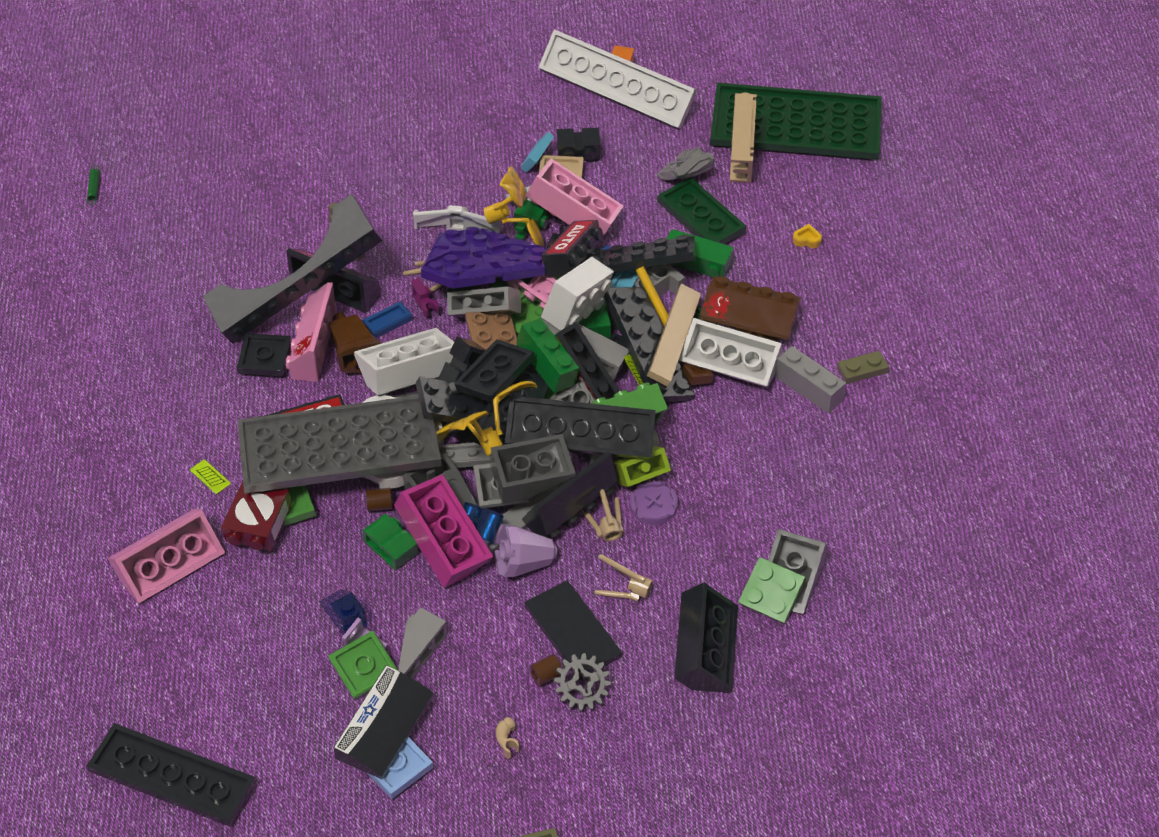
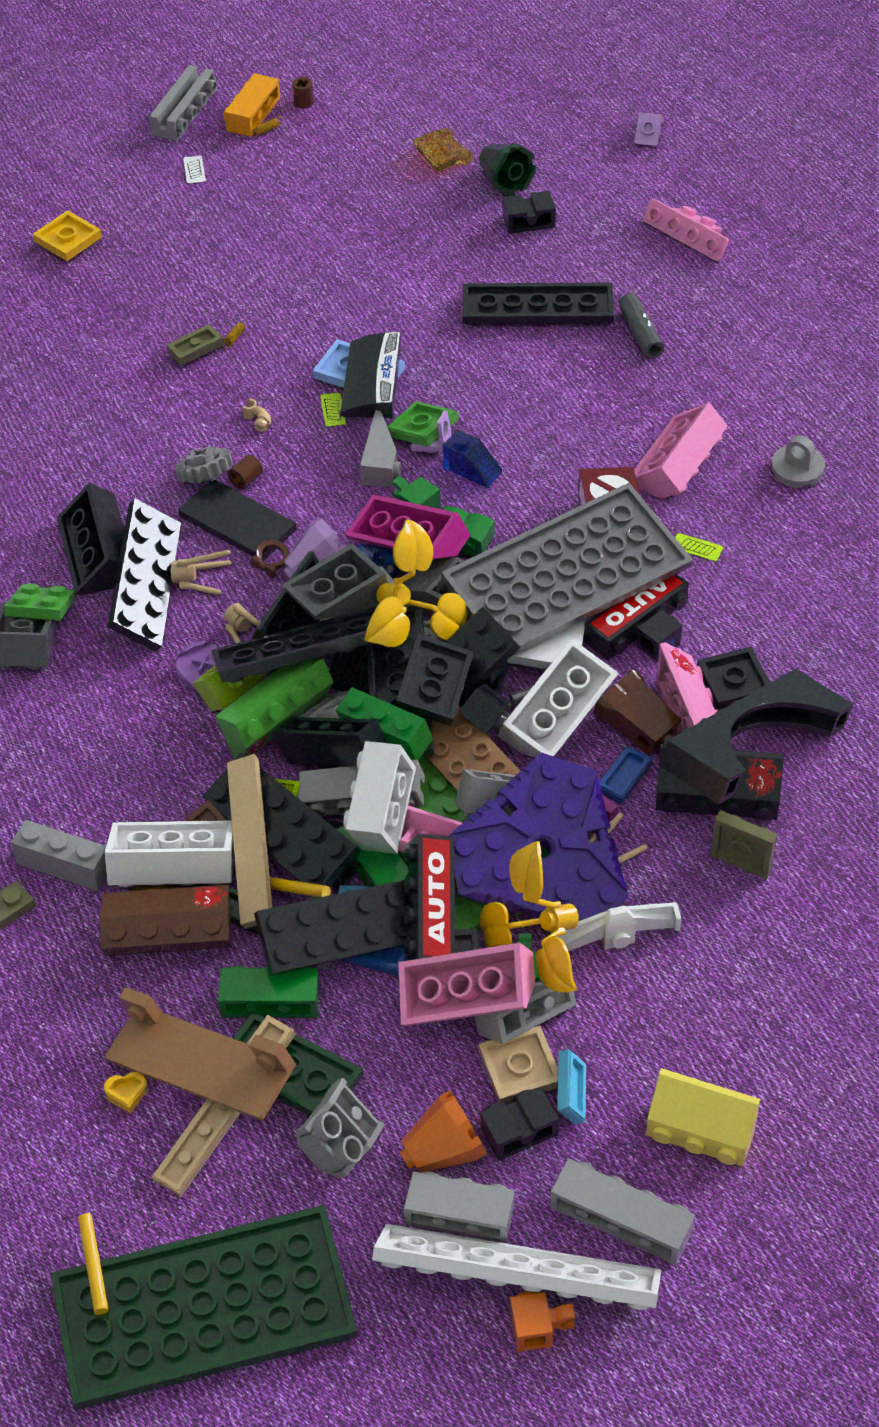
camera: 160 degrees right, 0 degrees up
(76, 513) = (798, 463): none -> light grey tile
(95, 707) = (641, 325): none -> dark grey axle
(293, 396) = (658, 630): none -> black brick
(411, 585) = (417, 492): none -> green brick
(431, 728) = (331, 408): none -> clear neon green sticker
(473, 112) = (702, 1117): none -> light yellow slope
(544, 91) = (622, 1210): none -> light grey brick
(564, 565) = (270, 569): none -> reddish brown piece
(626, 144) = (441, 1138): none -> orange cone
(633, 118) = (459, 1206): none -> light grey brick
(674, 584) = (144, 575): none -> plate
(743, 137) = (265, 1184): tan door -> none
(748, 202) = (208, 1127): none -> tan tile
(757, 217) = (199, 1059): none -> medium nougat bracket
(853, 151) = (93, 1264): none -> yellow bar

